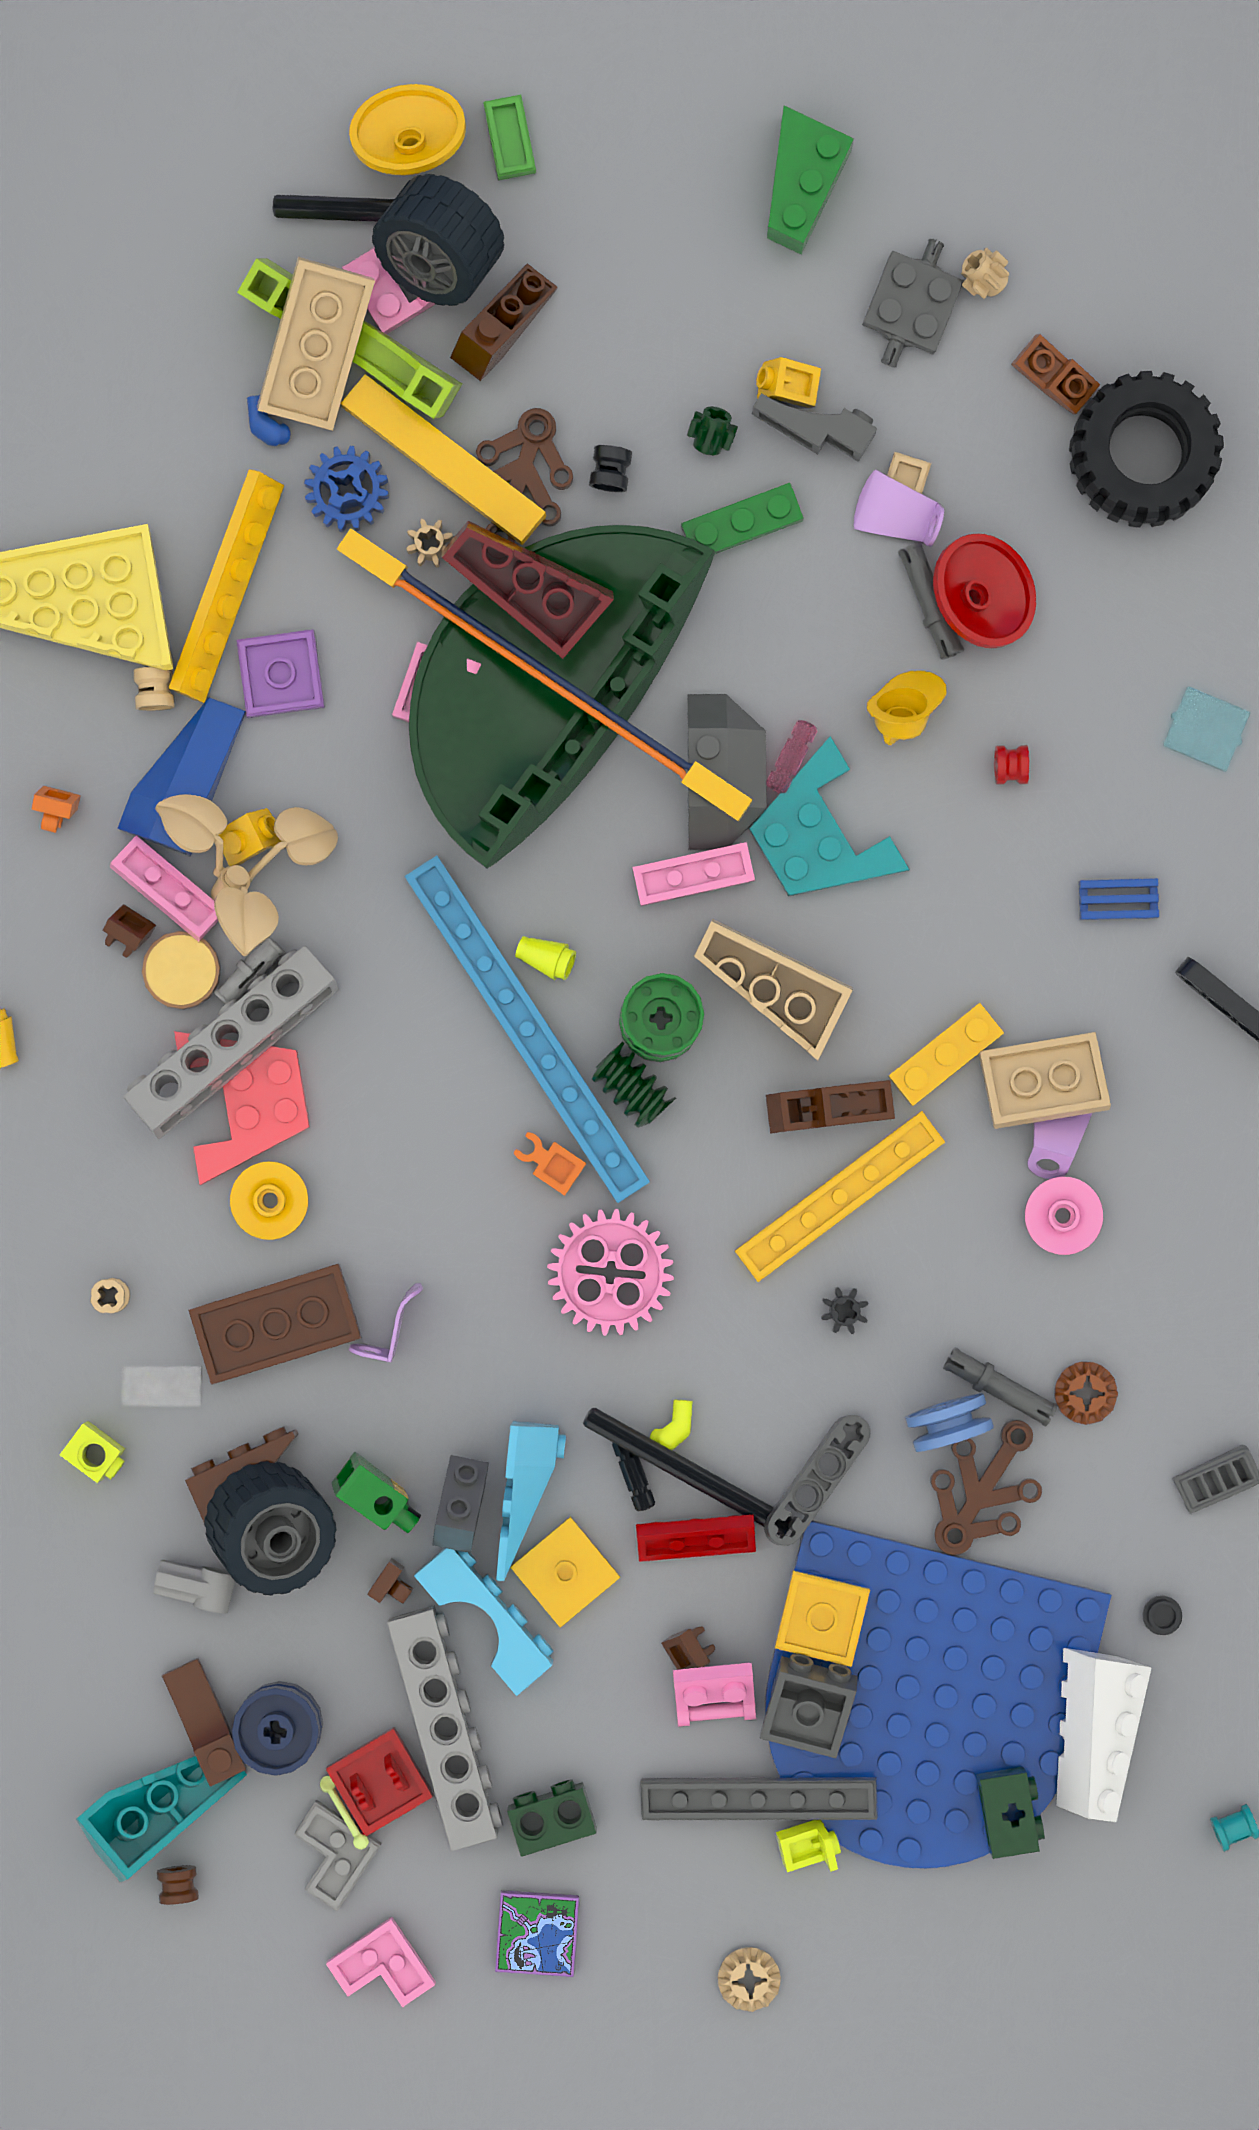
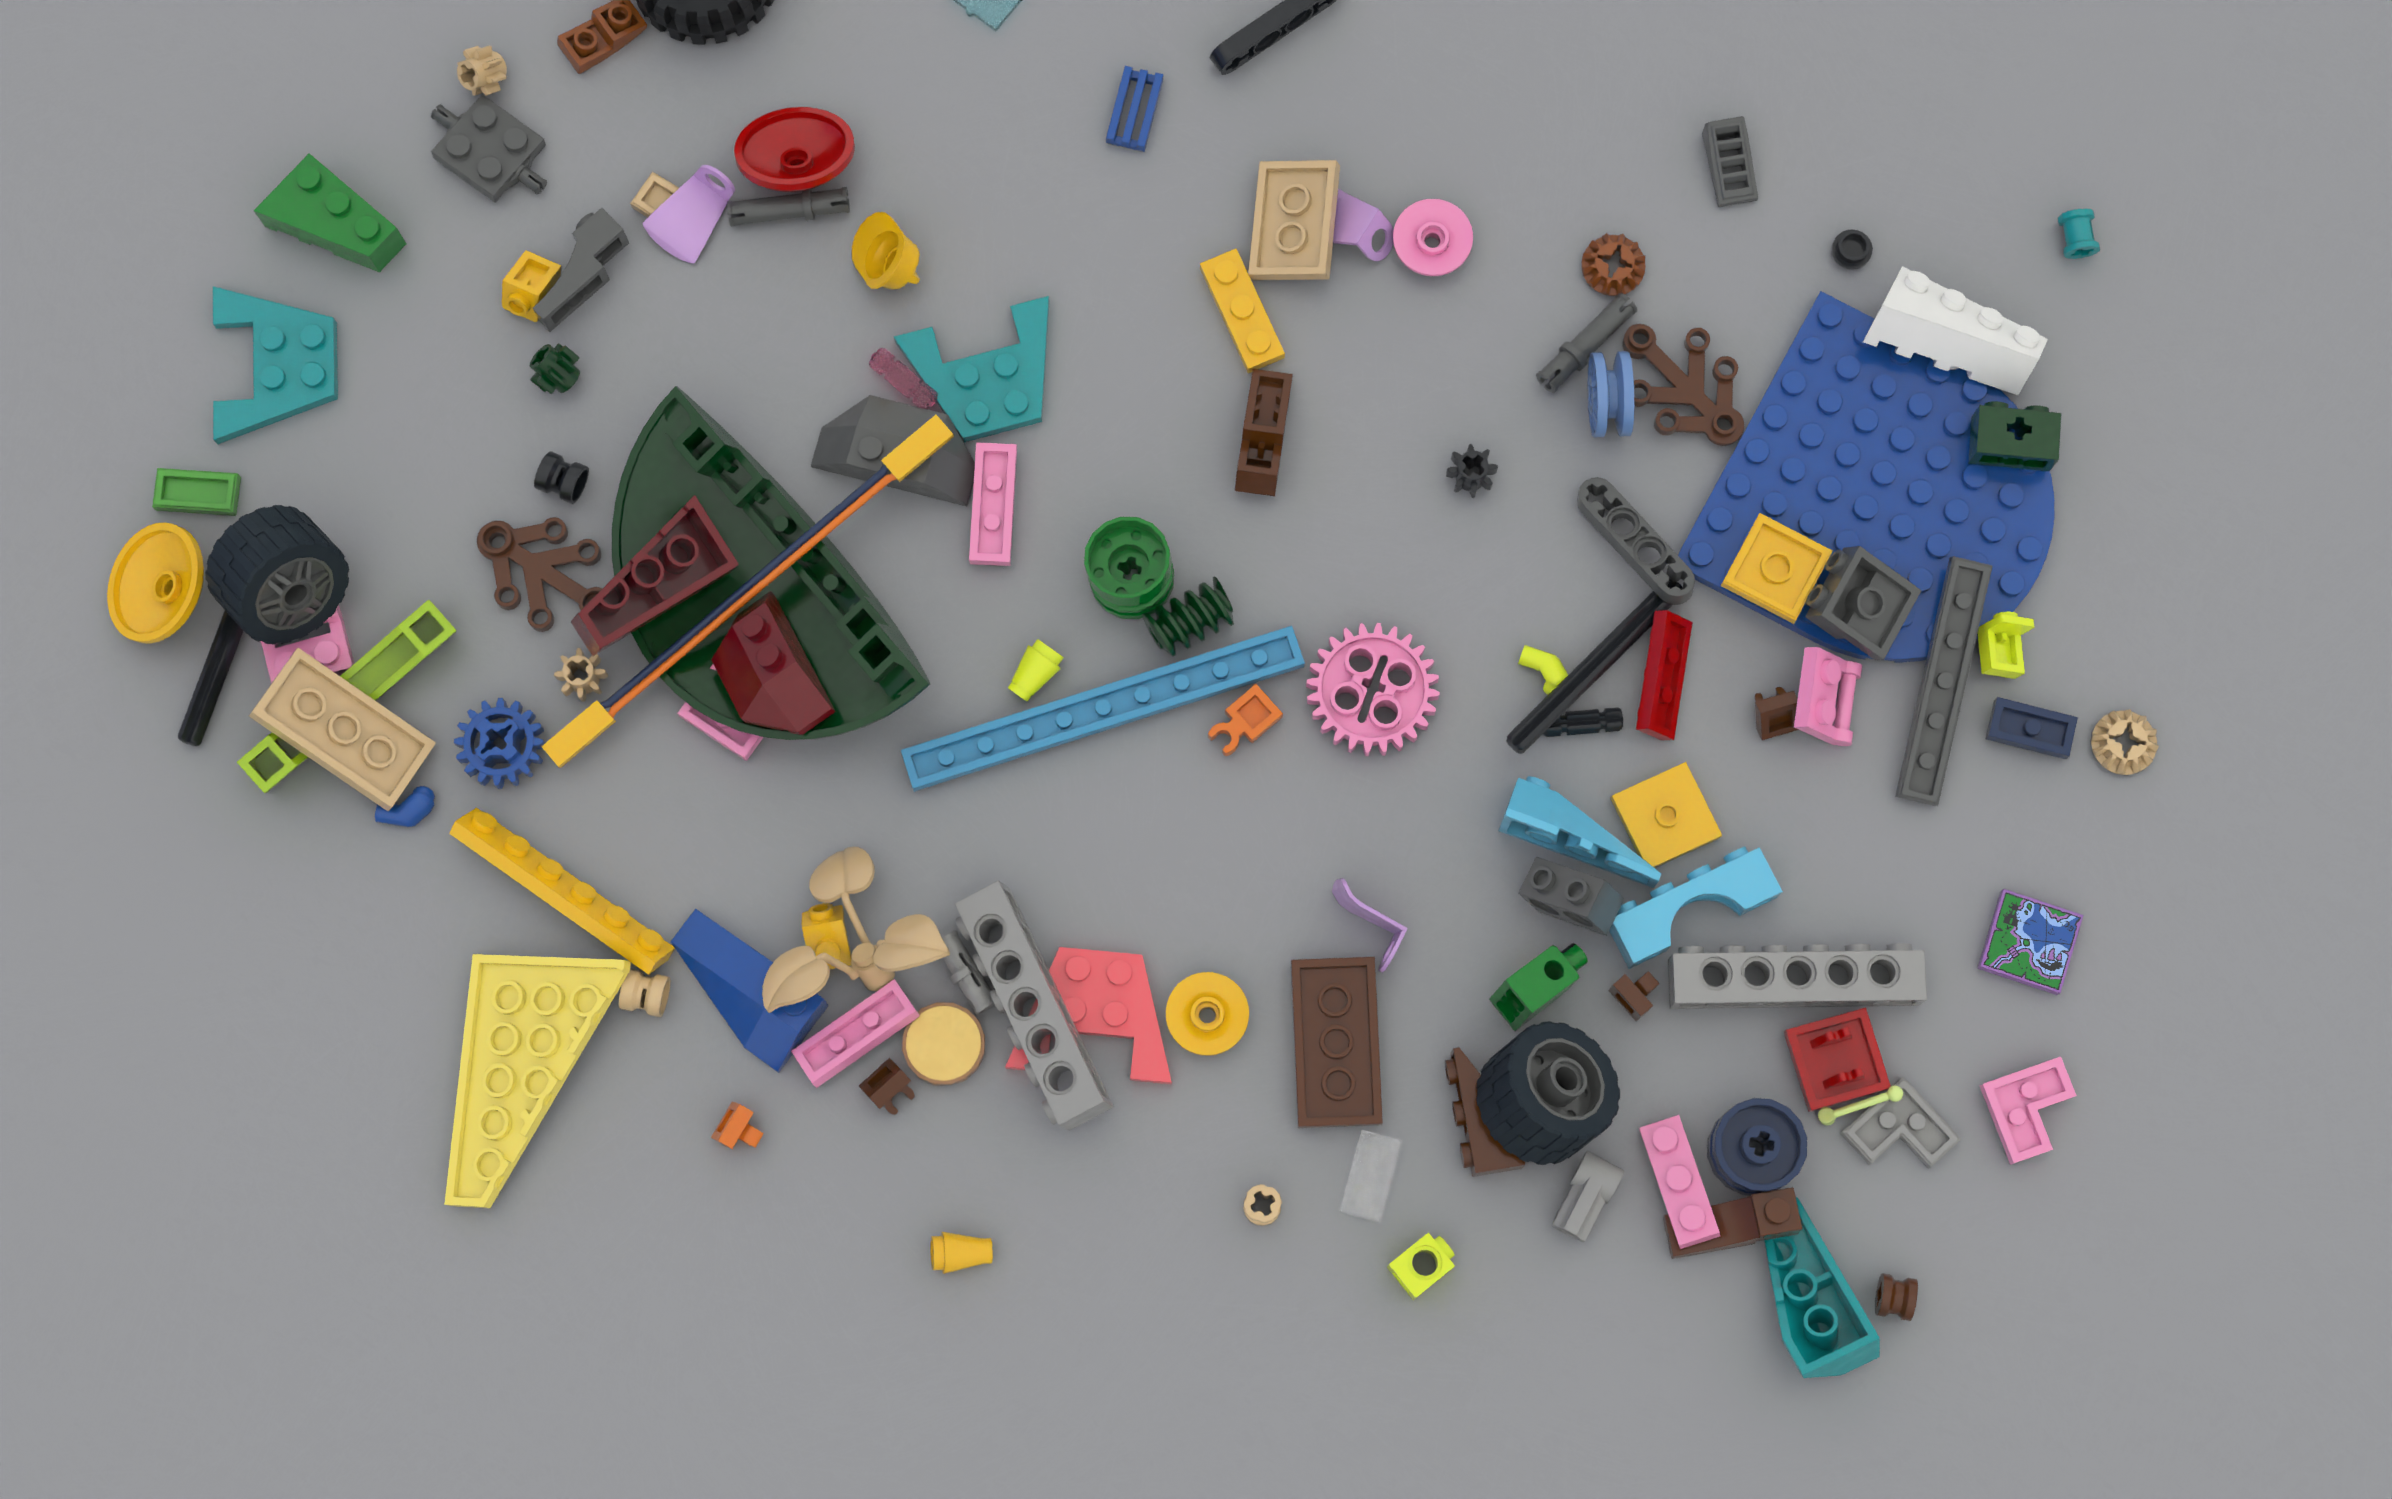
camera: 75 degrees left, 10 degrees down
(229, 1665) = (1679, 1182): none -> bright pink plate
(280, 673) = (668, 862): medium lavender tile -> none
(443, 459) = (500, 638): yellow tile -> none
(473, 715) = (770, 671): none -> dark red wedge
(502, 322) = (380, 545): reddish brown slope -> none
(555, 1828) = (1927, 894): dark green brick -> none
(656, 184) = (291, 362): none -> teal wing
(737, 1890) = (2031, 728): none -> dark blue plate
(745, 519) = (652, 358): green plate -> none
(782, 988) = (1132, 445): tan wedge -> none
(839, 1196) = (1356, 449): yellow tile -> none
(1011, 764) = (973, 171): red wheel -> none

